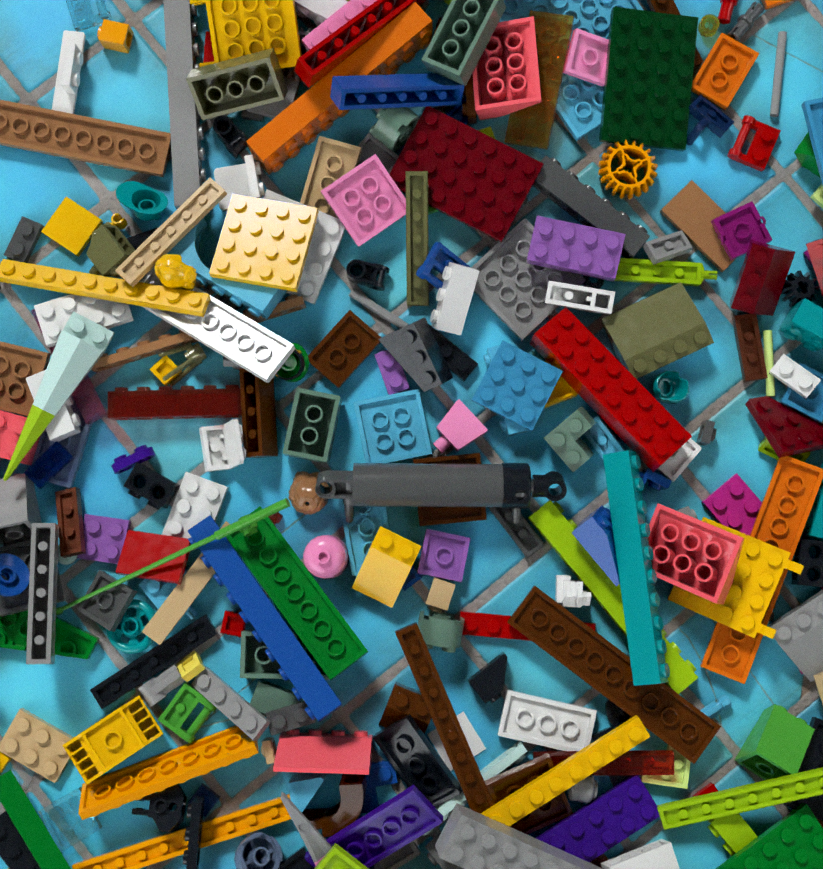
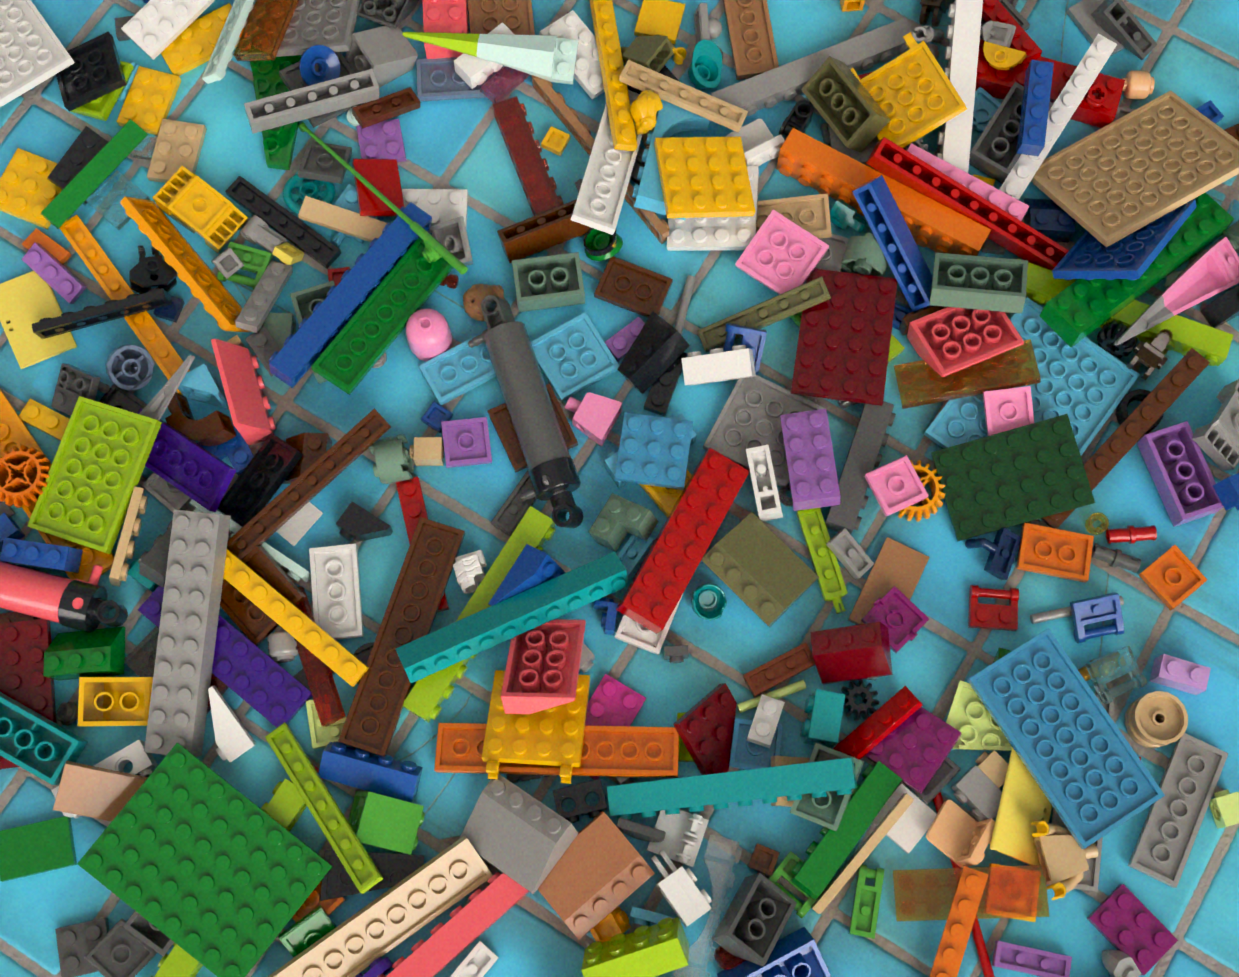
camera: 65 degrees right, 10 degrees down
(48, 465) = (431, 71): clear blue plate -> none
(98, 186) = (705, 27): none -> light grey tile
(125, 463) = (461, 141): dark purple plate -> none
(153, 482) = (448, 165): black brick -> none
(180, 729) = (227, 262): none -> light grey slope
(193, 356) = (578, 158): olive plant -> none
(222, 446) = (500, 208): white bracket -> none
(237, 502) = (454, 238): none -> light grey slope
(343, 129) = (844, 216): none -> teal plate
(368, 275) = (713, 287): black piece -> none
(386, 566) = (438, 390): yellow slope -> none
(625, 182) = (896, 486): none -> bright pink plate
(714, 708) = (400, 752): medium azure axle -> none
(726, 748) = (370, 771): none -> blue brick
(789, 57) = (1097, 610): none -> plate

